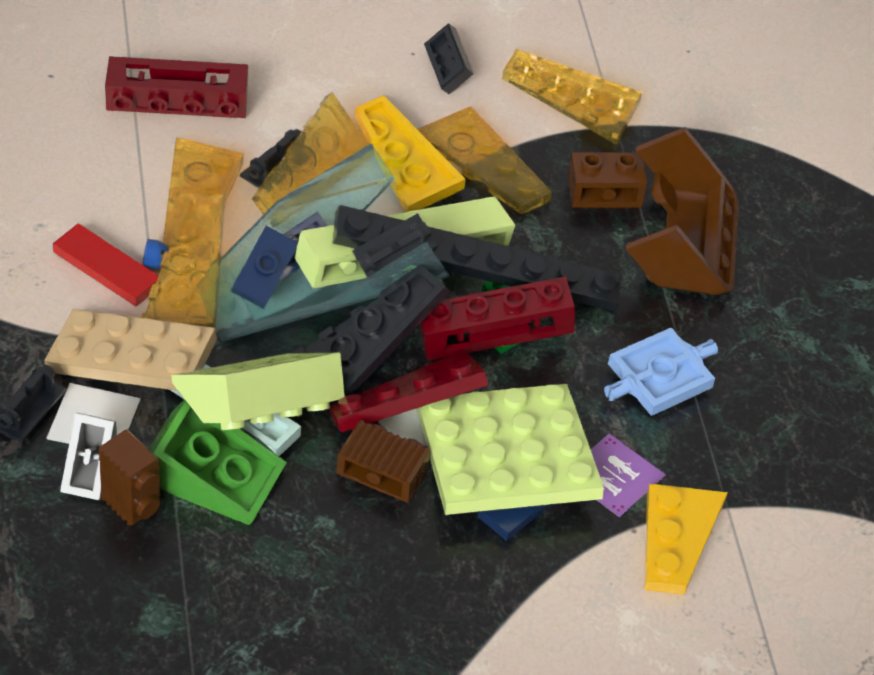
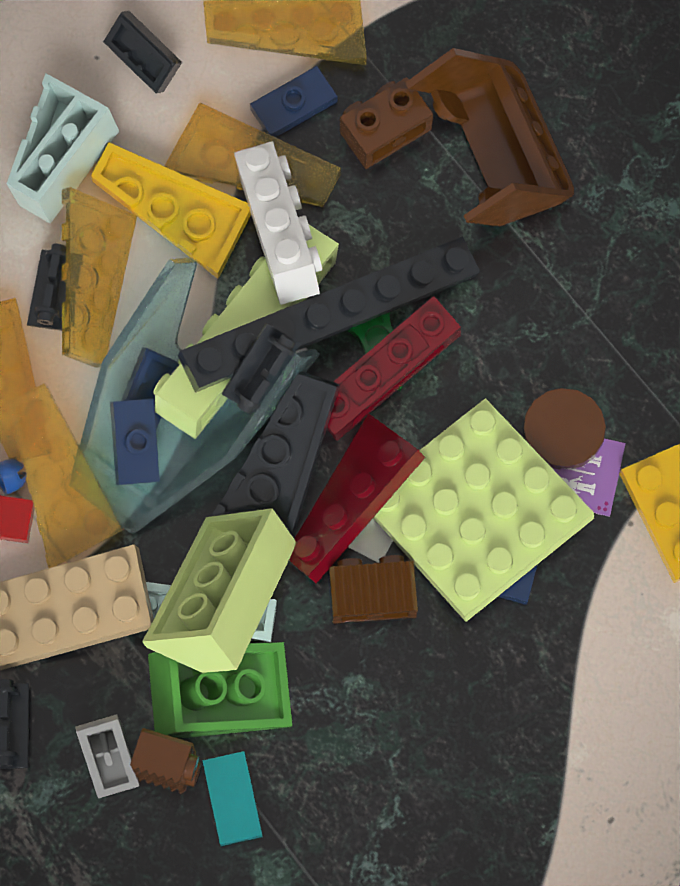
camera: 25 degrees left, 25 degrees up
(94, 403) = (71, 694): white sticker -> none
(166, 545) = (232, 798): none -> teal tile
(351, 72) = (60, 147): none -> light aqua wedge
(474, 180) = (277, 224): none -> white brick
(543, 140) = (293, 102): none -> dark blue plate
(621, 436) = (565, 428): none -> reddish brown tile
(661, 371) = (562, 330): light blue plate -> none

